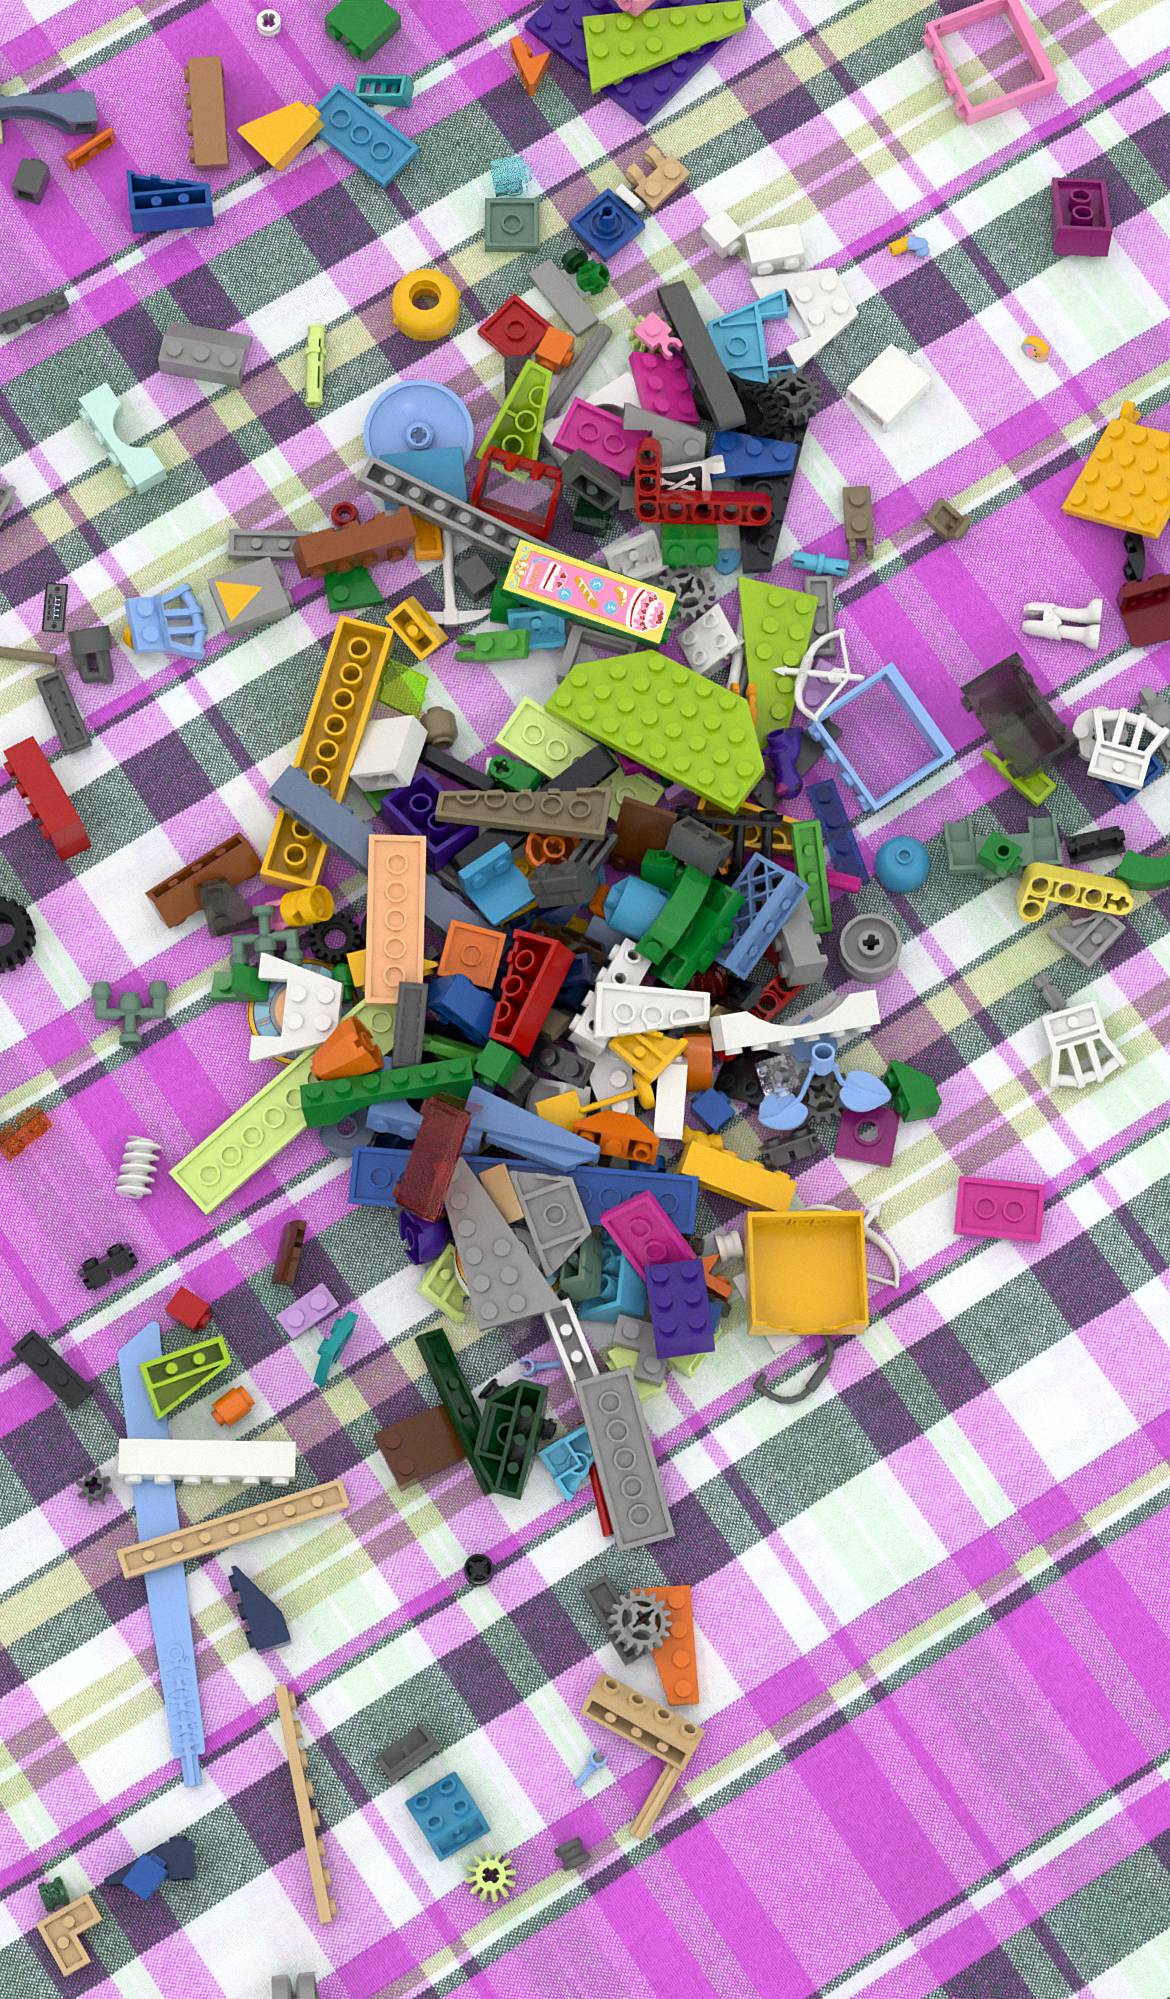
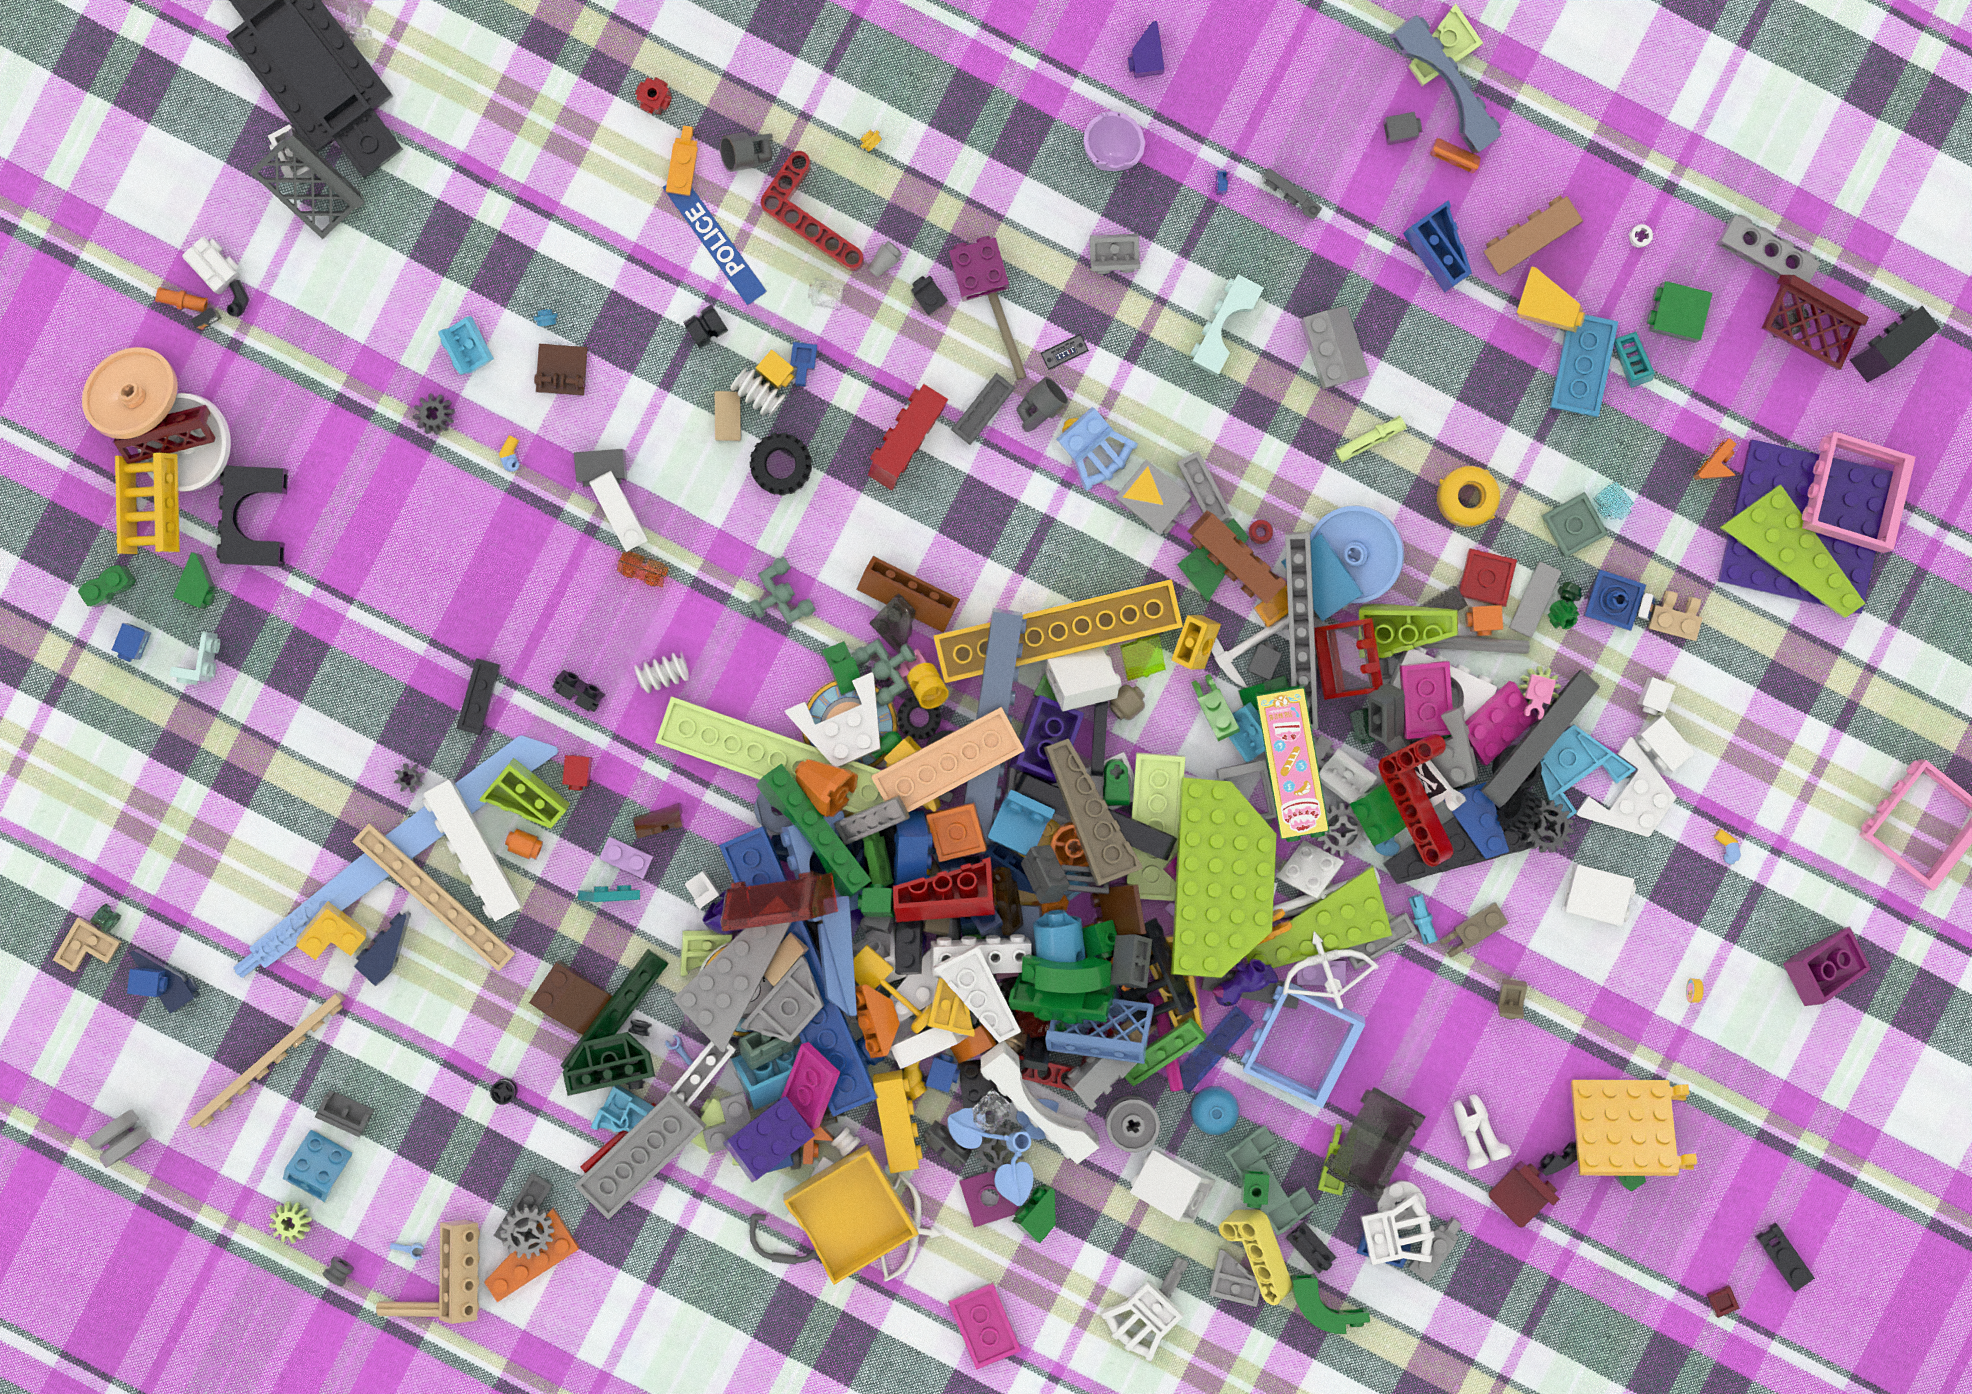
camera: 65 degrees right, 15 degrees up
(200, 1654) = (327, 927): none -> yellow brick
(384, 1250) = (702, 889): none -> white panel
(955, 944) = (1171, 1186): none -> white slope

